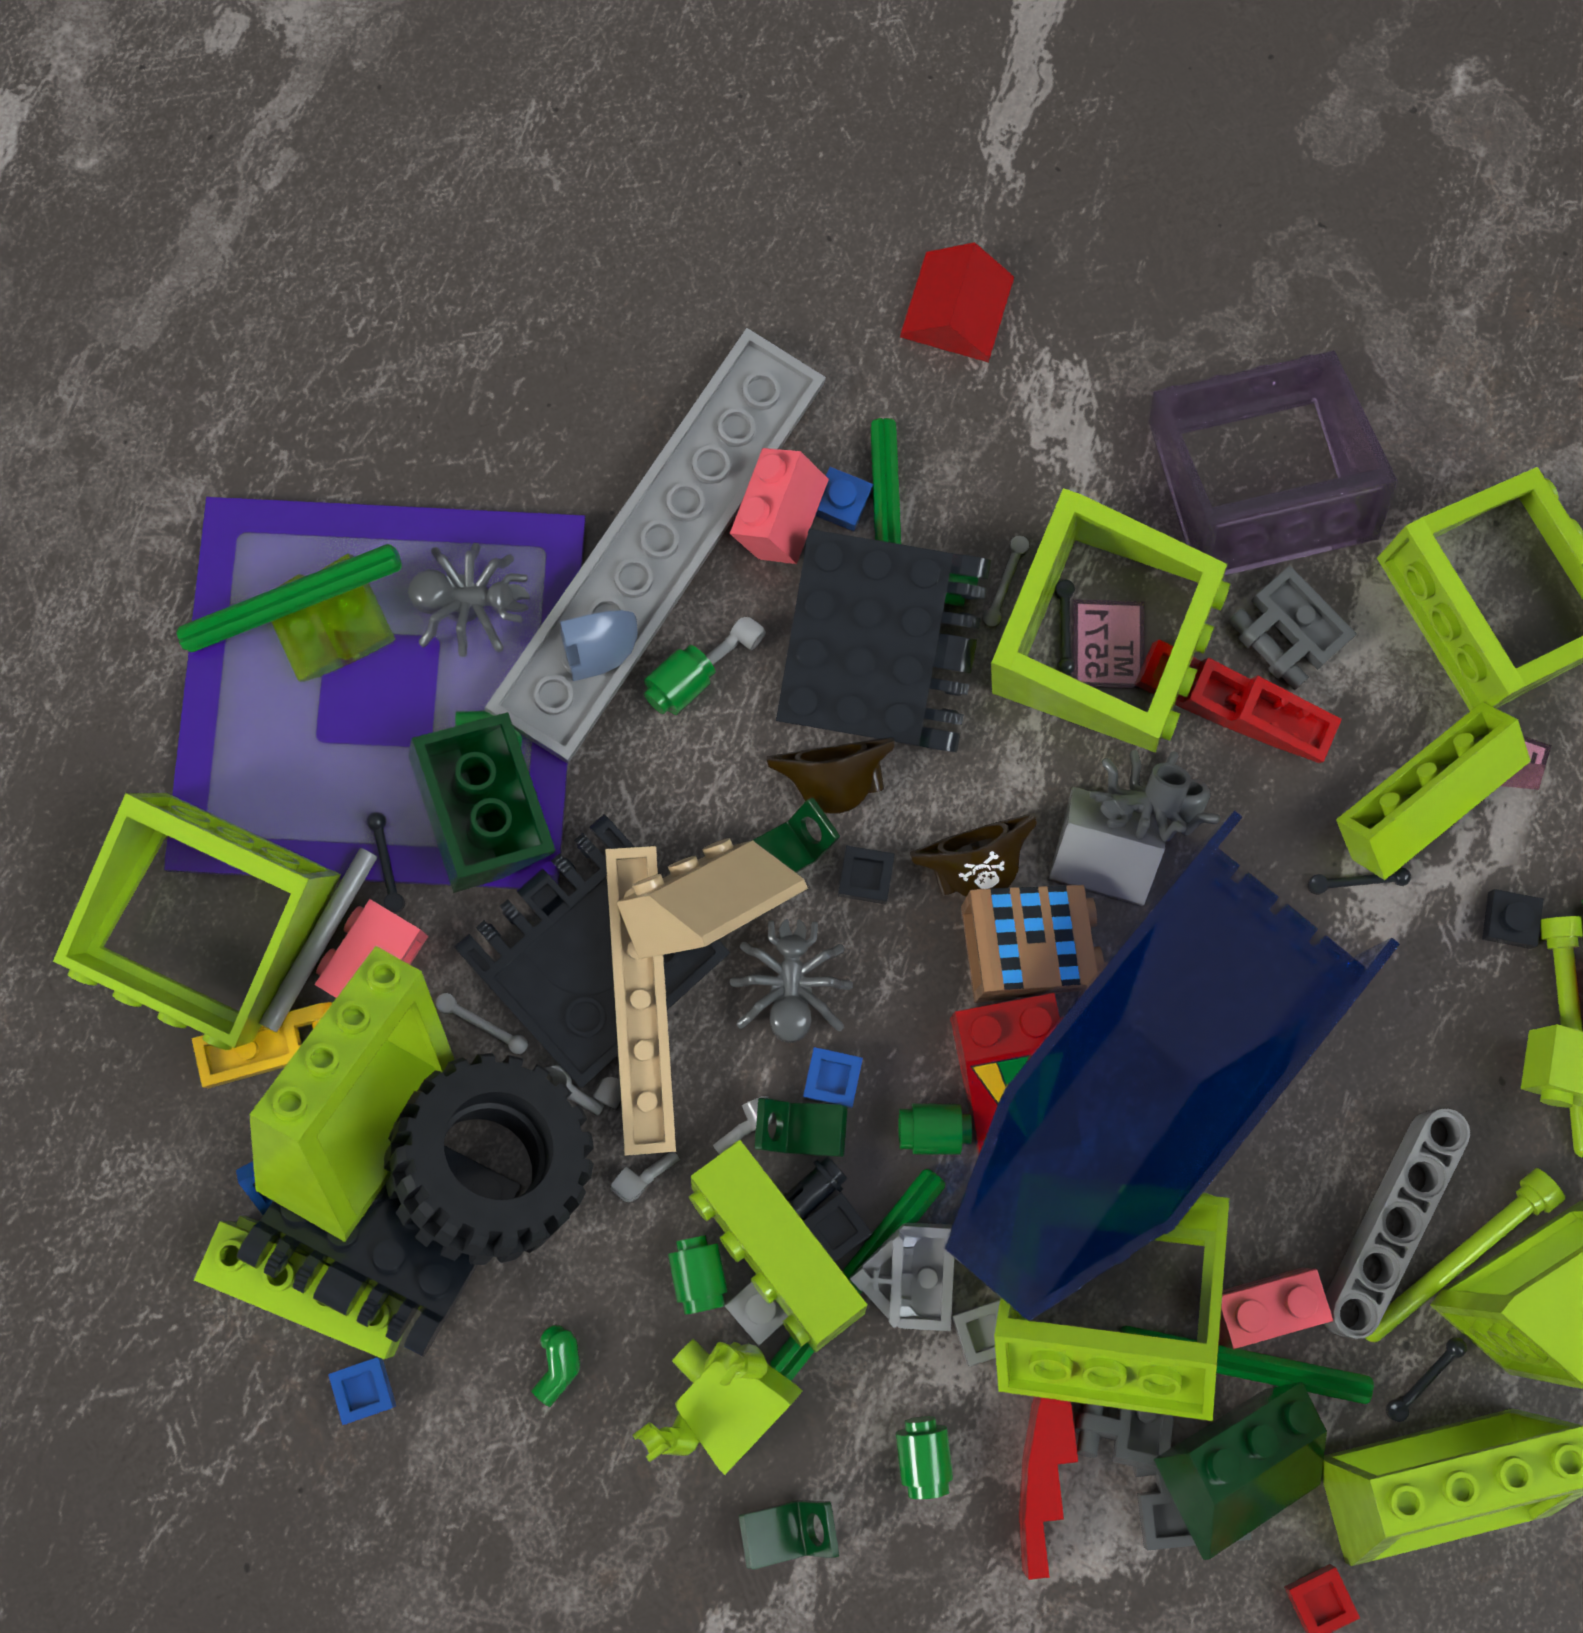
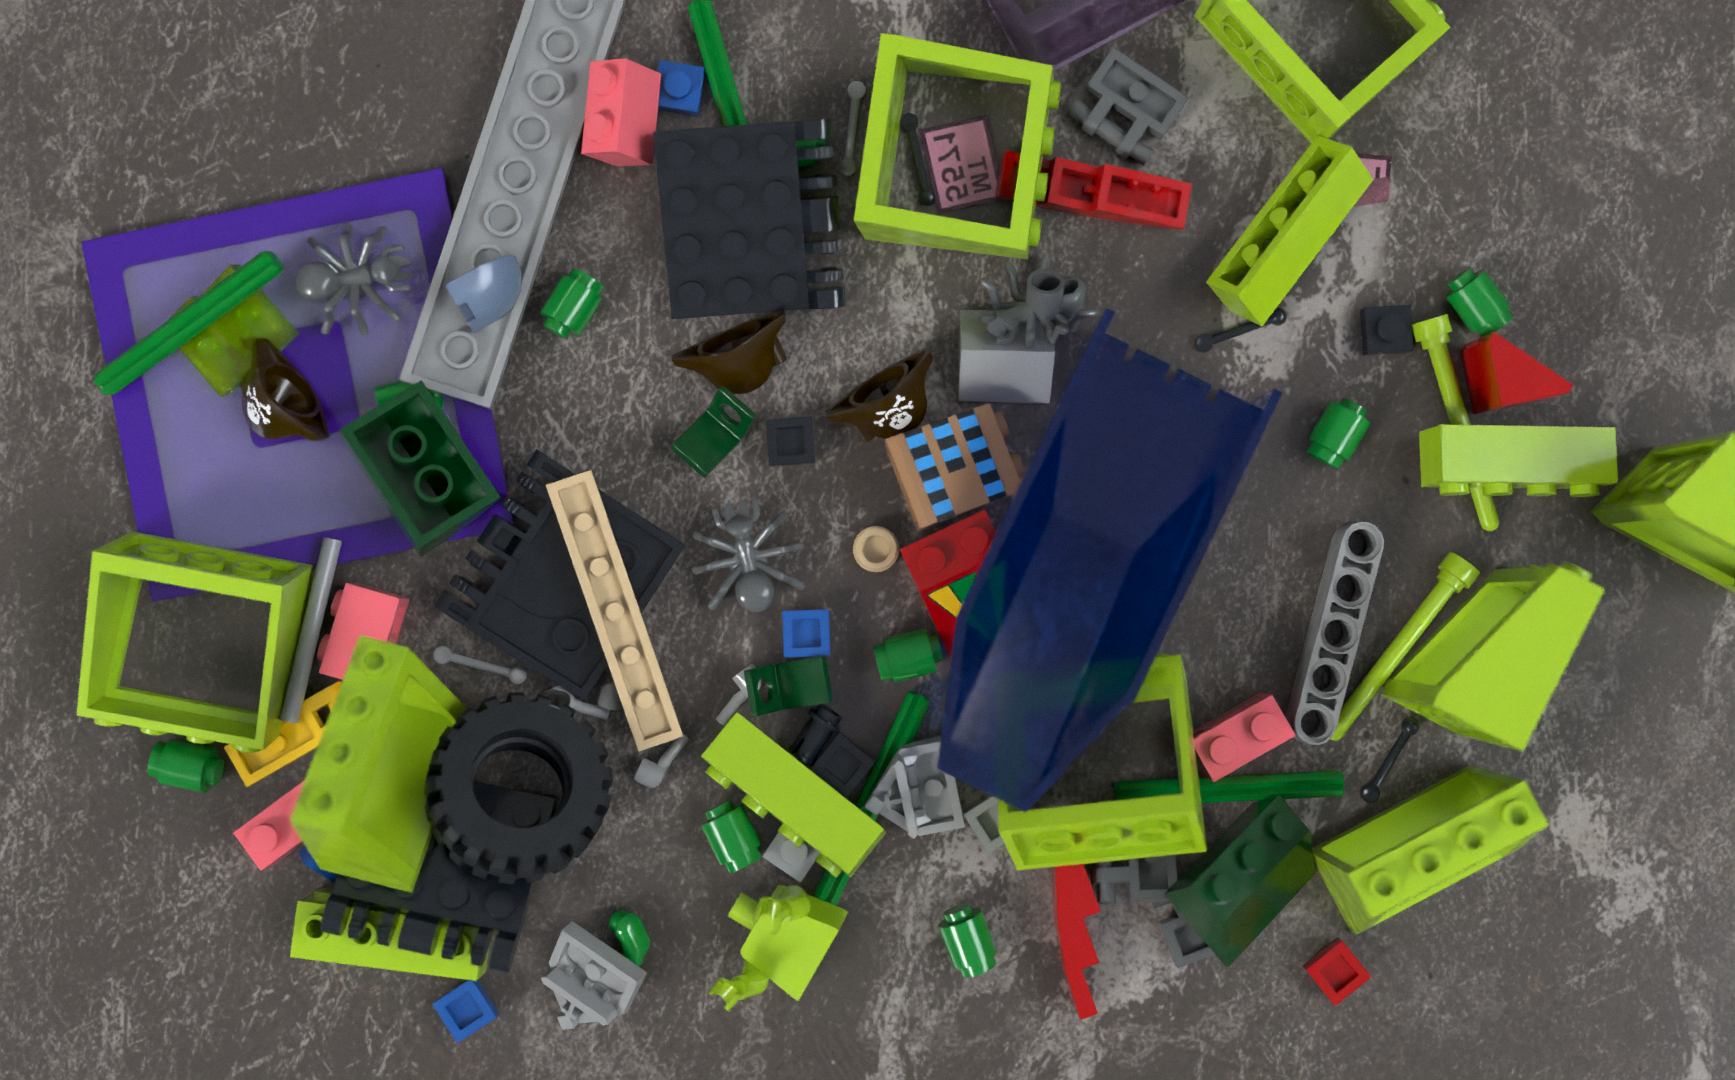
camera: 10 degrees left, 10 degrees up
(146, 1048) = (185, 765): none -> green brick
(218, 1141) = (270, 834): none -> coral brick
(357, 696) = (279, 398): none -> dark brown hat
(393, 901) = (368, 576): black hinge -> none
(505, 1392) = (590, 979): none -> light grey slope
(706, 897) = (649, 506): tan slope -> none
(744, 631) = (620, 241): light grey hand -> none
(787, 1533) = (864, 1033): dark green bracket -> none
(926, 1009) = (876, 549): none -> tan tile
(1441, 1011) = (1338, 433): none -> green brick

